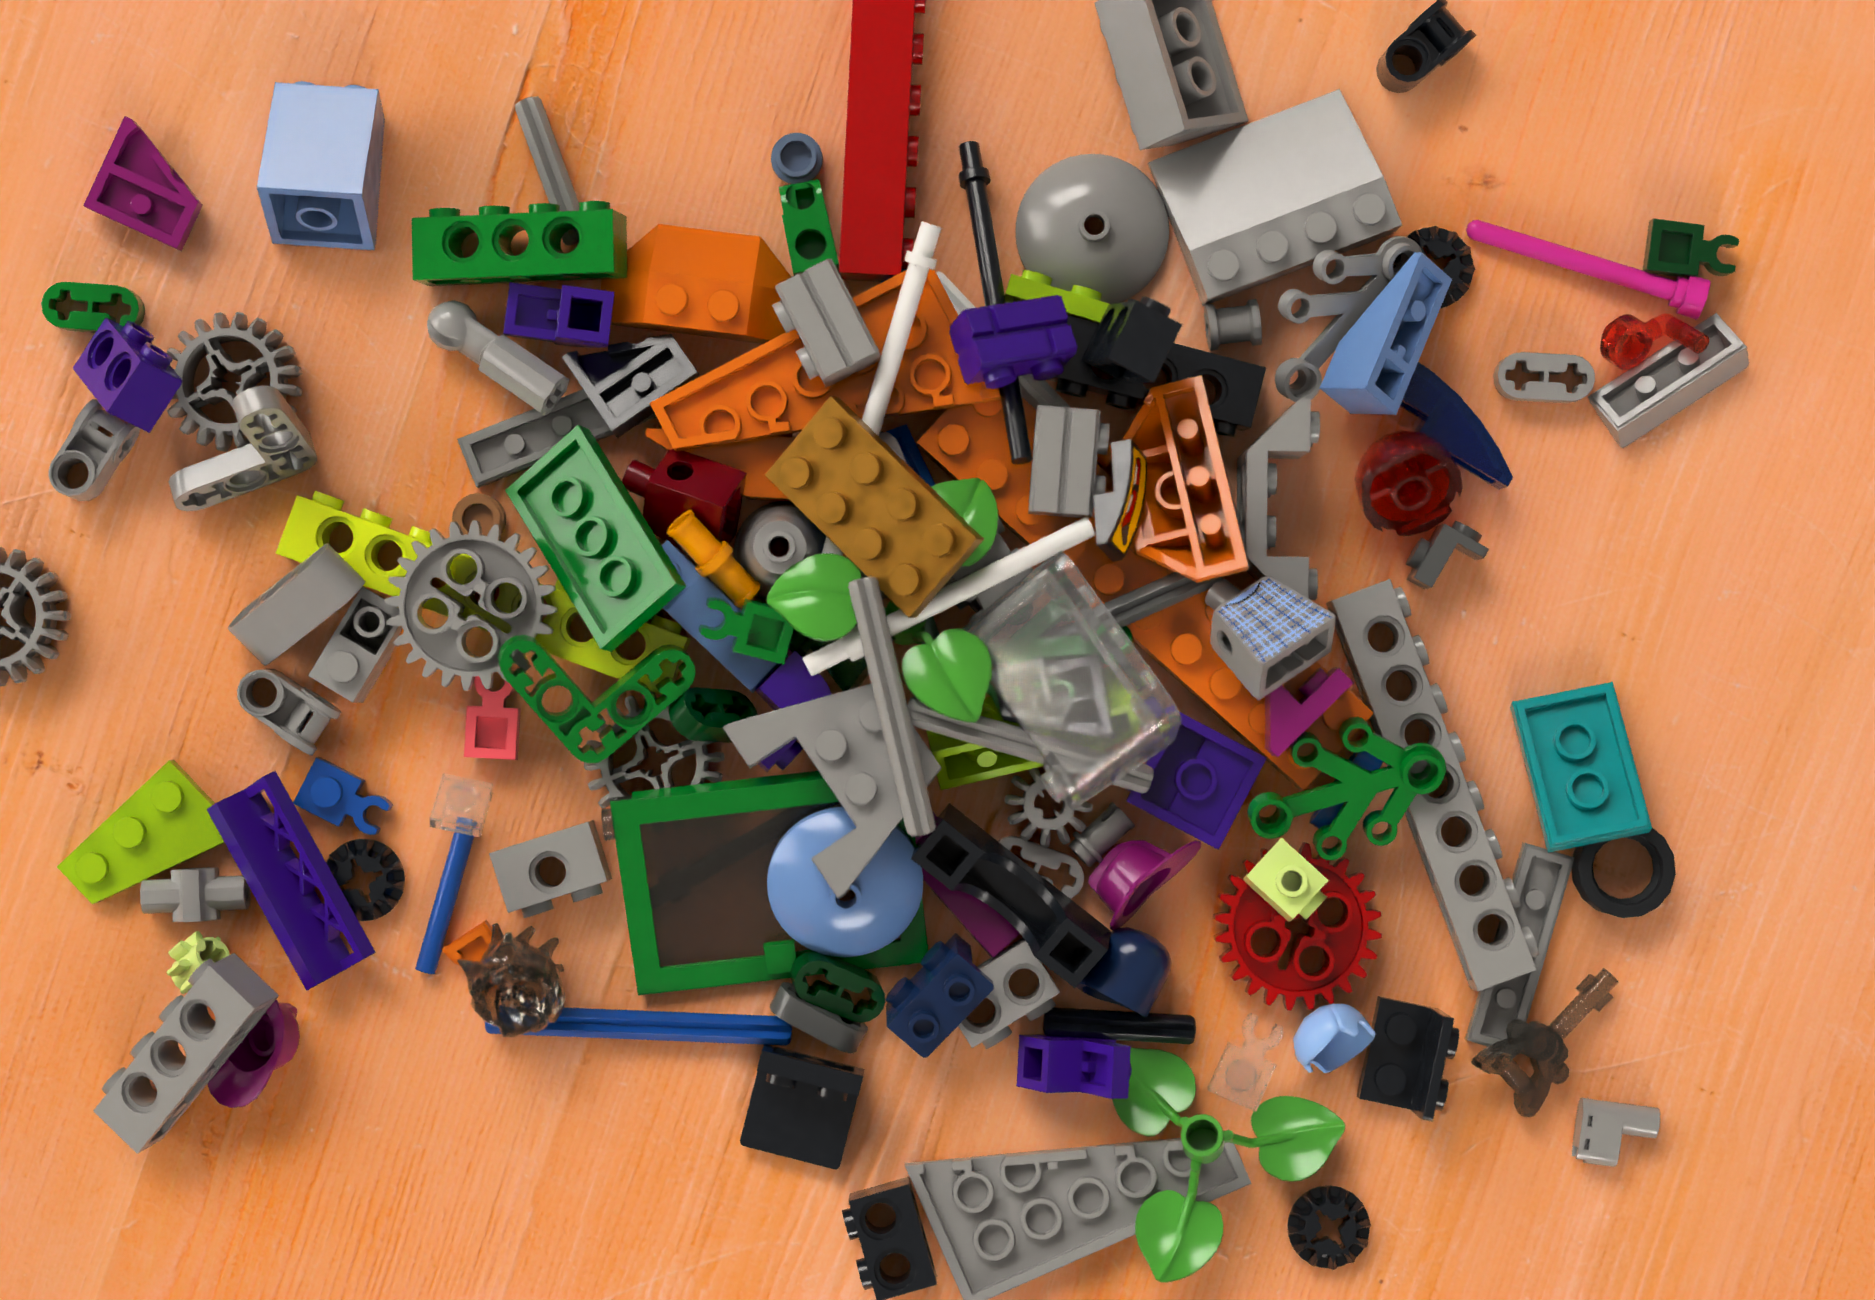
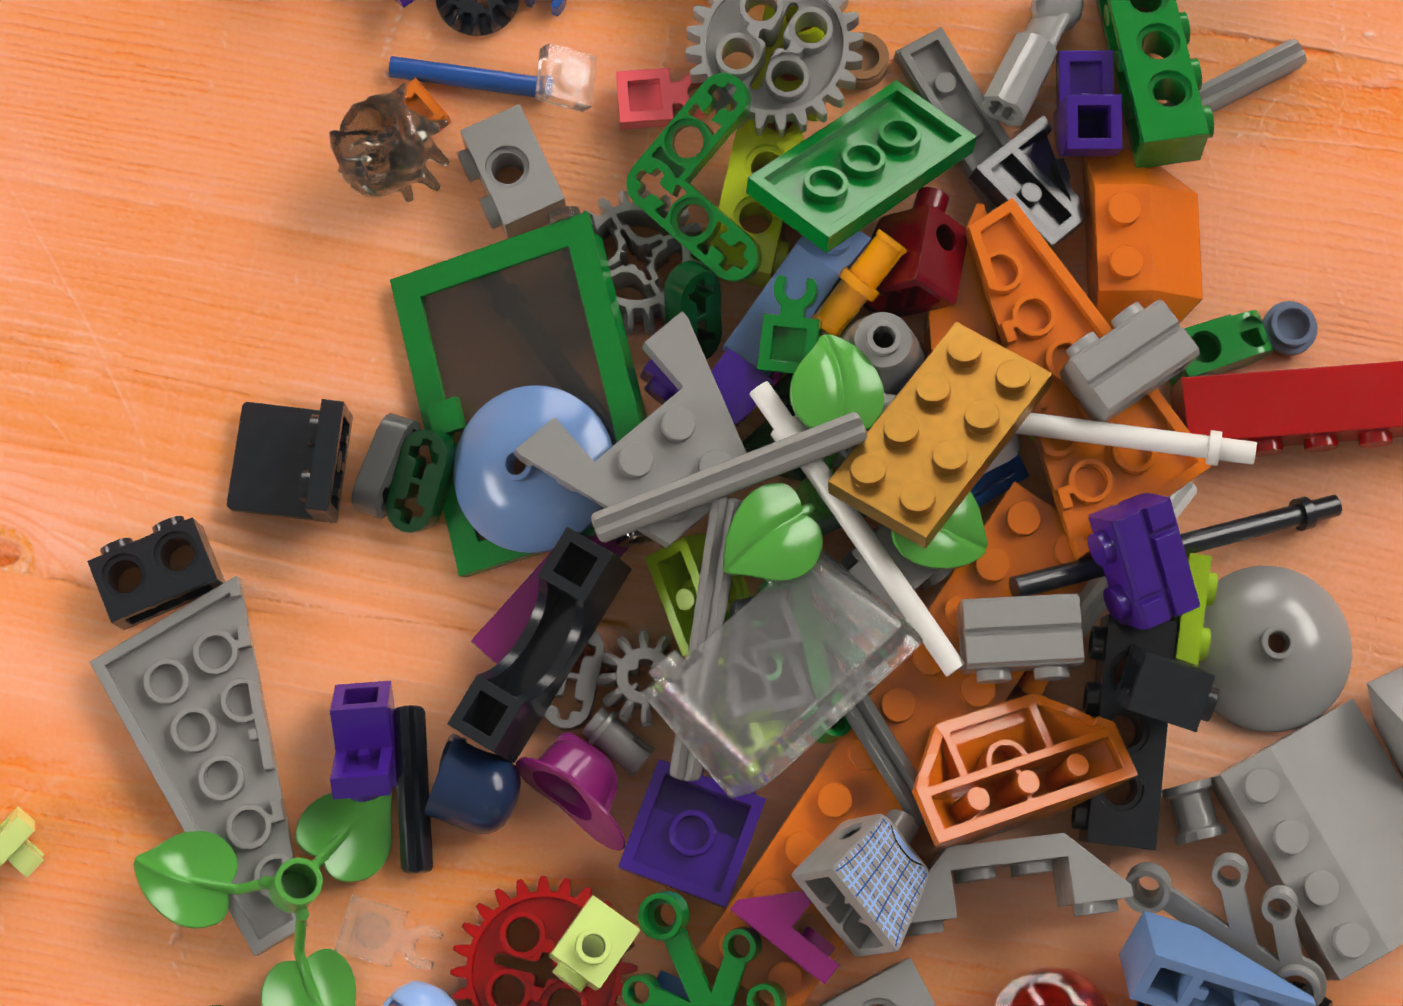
camera: 80 degrees right, 10 degrees down
(666, 1026) = (359, 311): blue axle -> none
(937, 996) = (419, 584): dark blue bracket -> none
(1007, 1004) = (442, 646): light grey brick -> none
(1120, 511) = (977, 700): slope -> none

